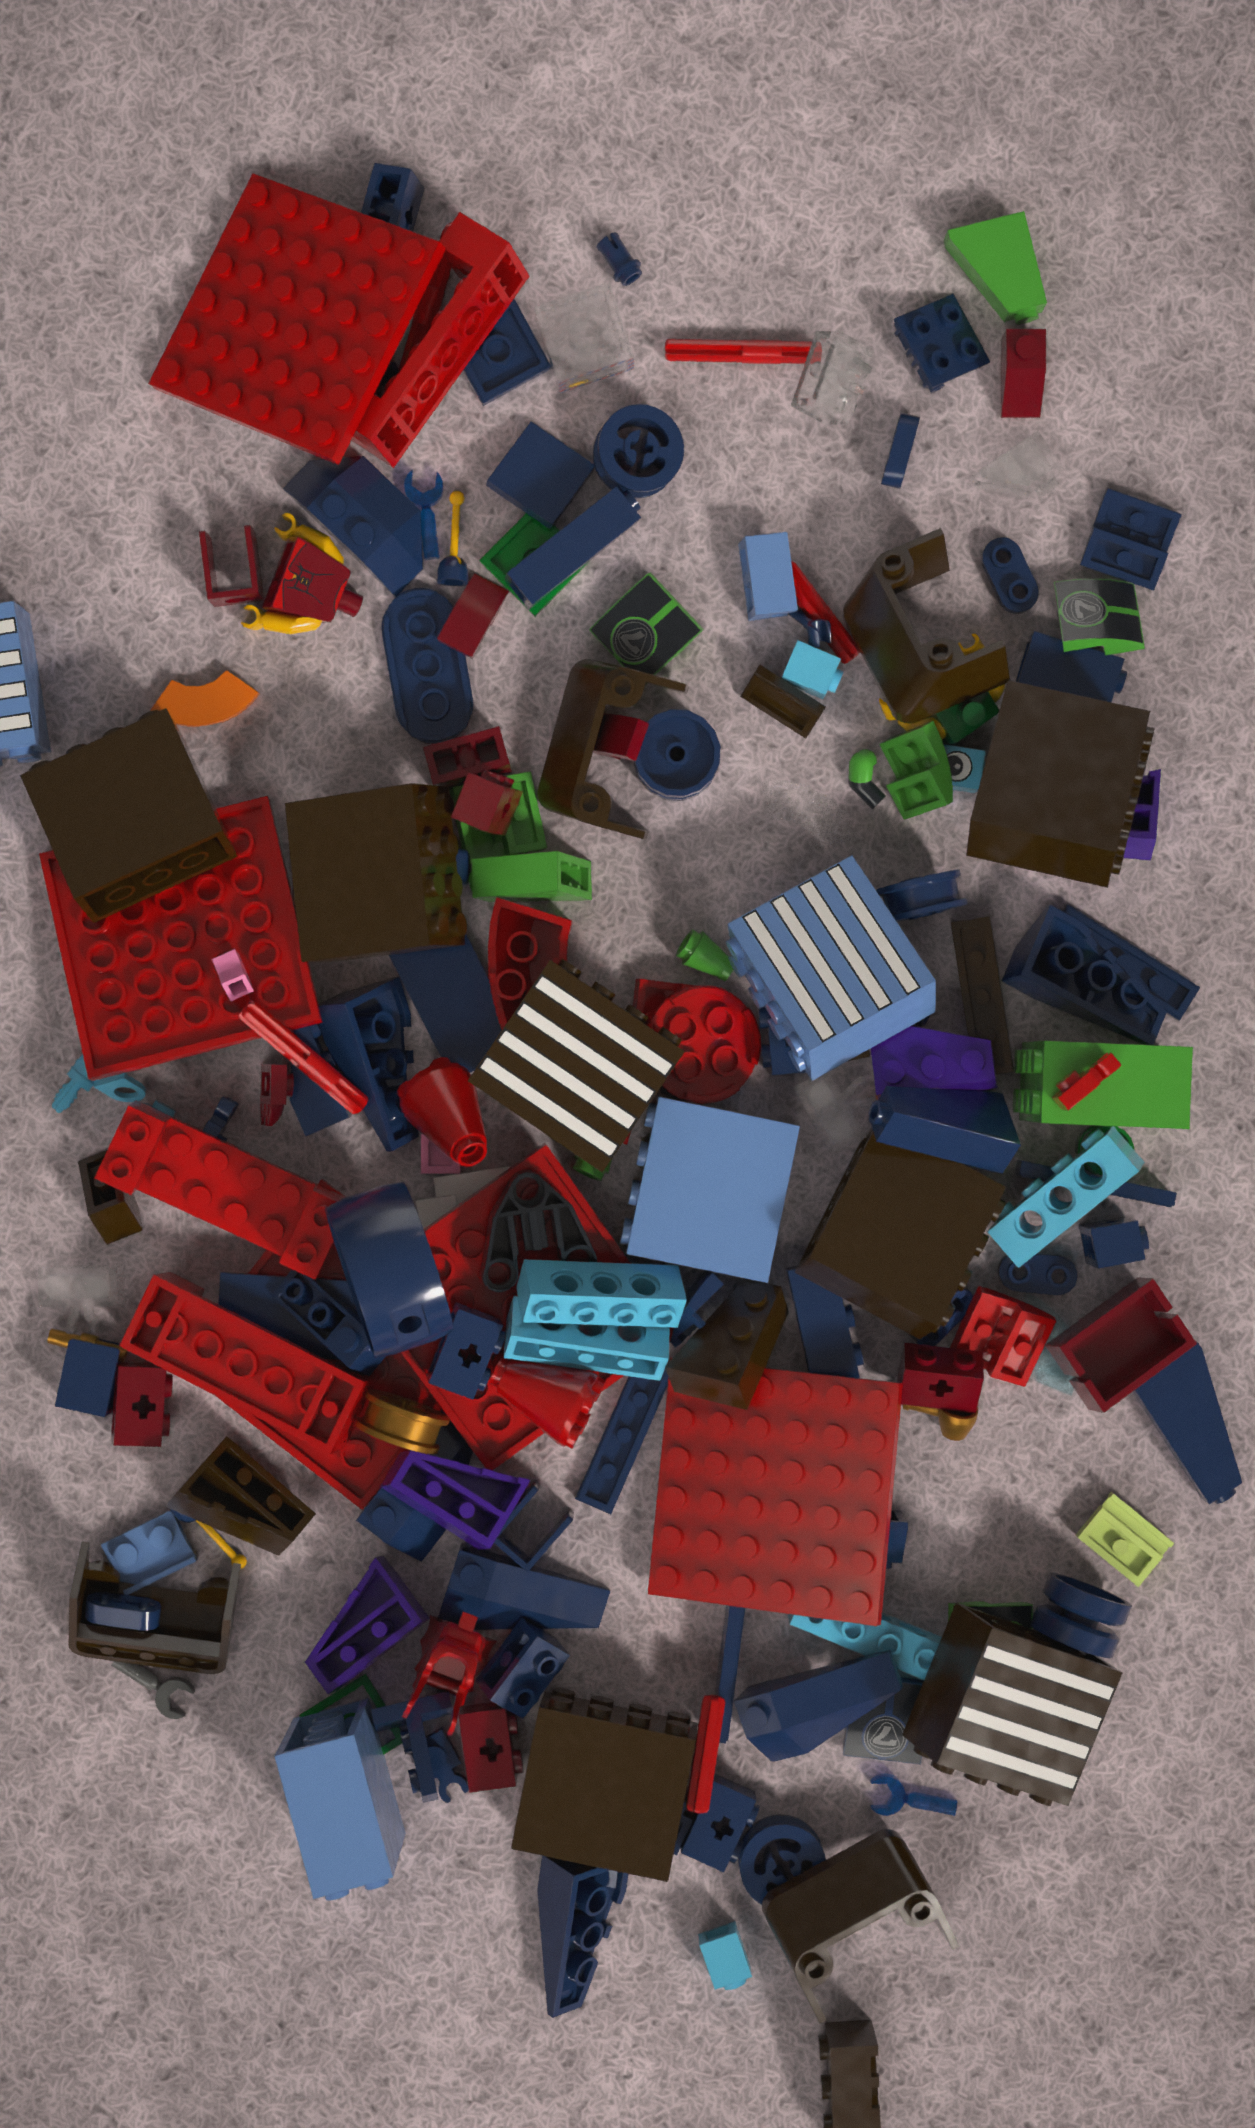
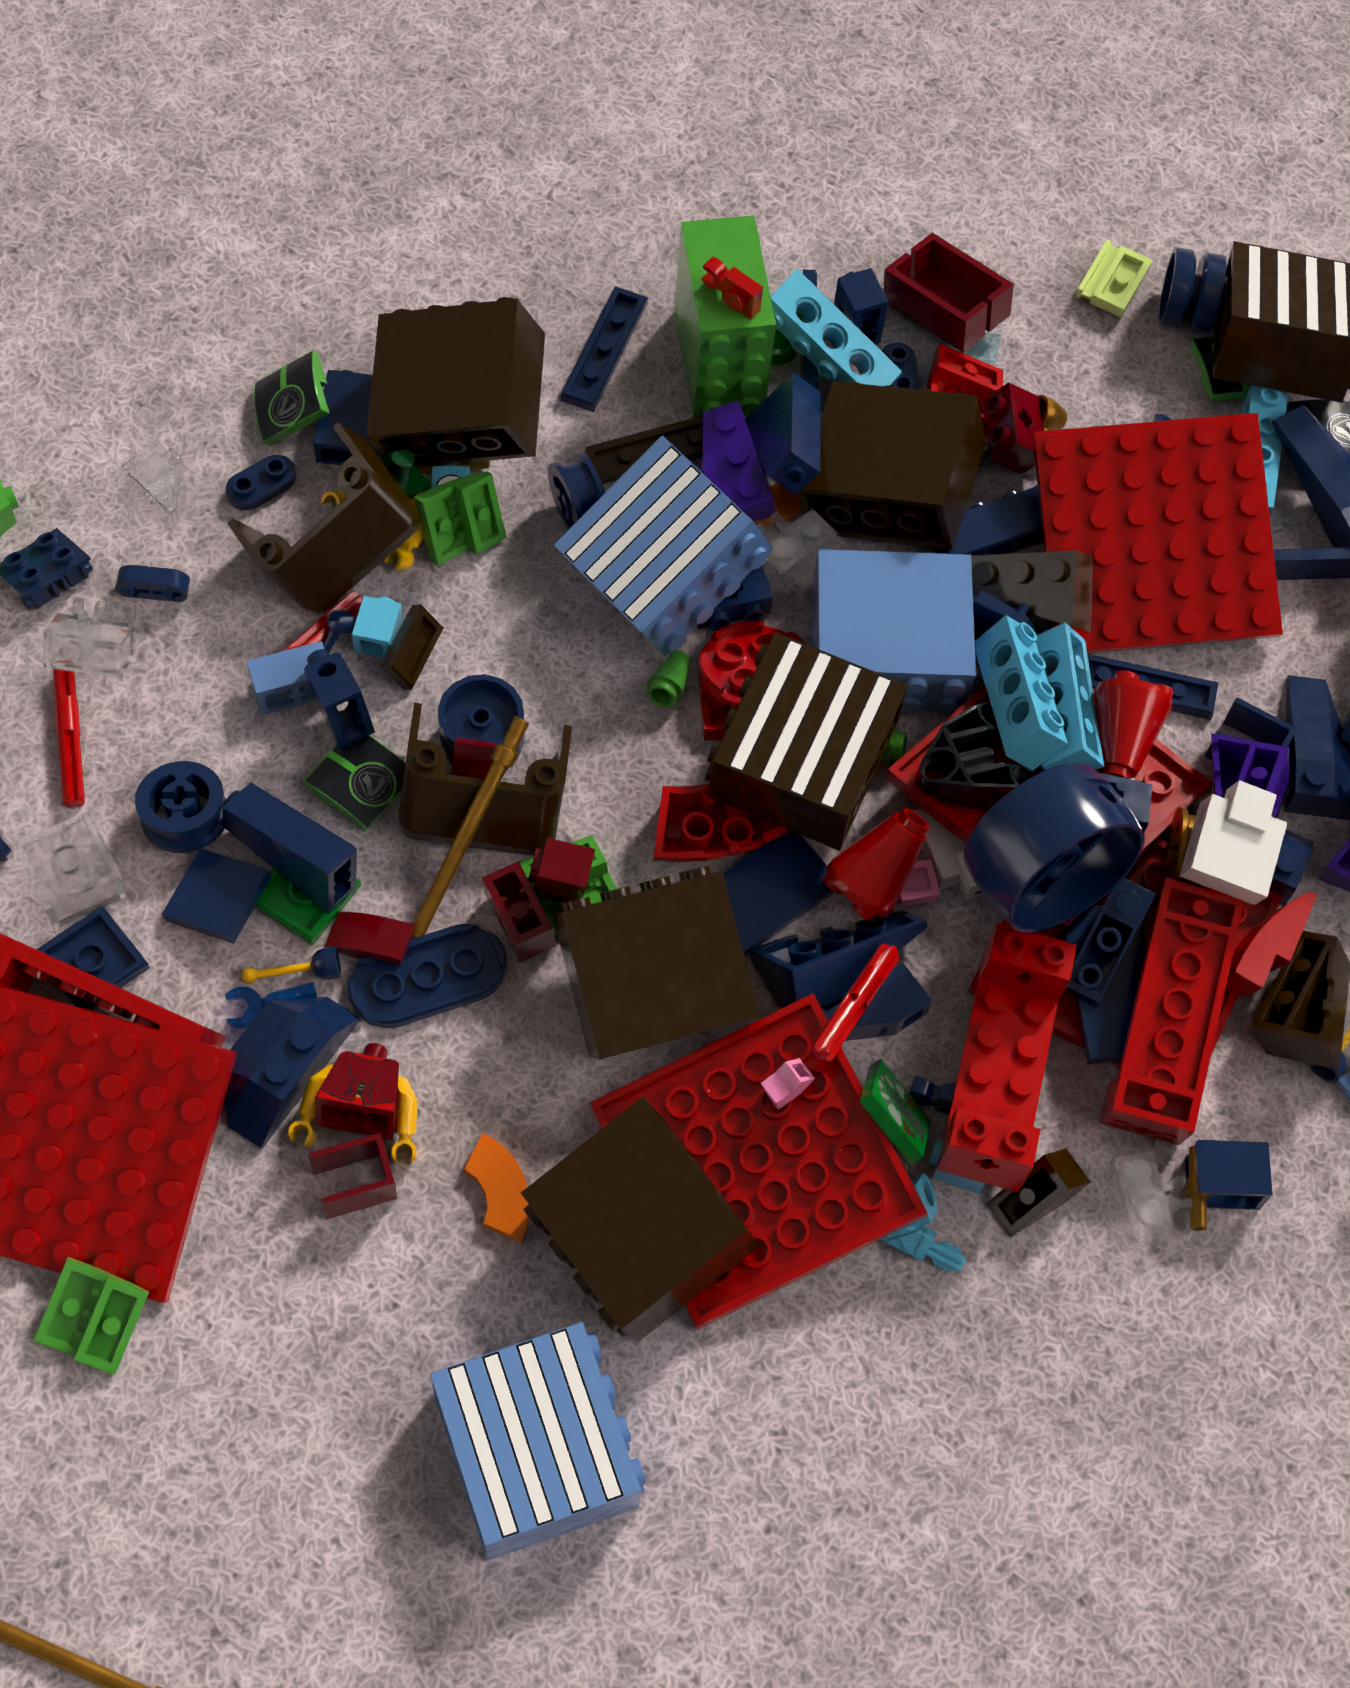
camera: 105 degrees left, 25 degrees down
(130, 1426) = (1246, 1116): dark red brick -> none
(144, 317) = (91, 1315): none -> bright green slope
(197, 1074) = (895, 1112): none -> green tile
(274, 1090) = (895, 1037): dark red plate -> none
(307, 1479) = (1268, 946): none -> red slope
(376, 1455) = (1235, 843): none -> white piece
(531, 878) = (627, 838): bright green slope -> none
(603, 759) = (503, 757): none -> pearl gold bar
(722, 613) = (332, 686): none -> dark blue torso
(861, 777) = (473, 575): arm -> none
(1022, 372) = (64, 492): dark red slope -> none
(1073, 973) = (625, 376): dark blue wedge -> none
(1130, 539) = (213, 392): dark blue slope -> none
(1191, 1423) = (1010, 233): dark blue slope -> none

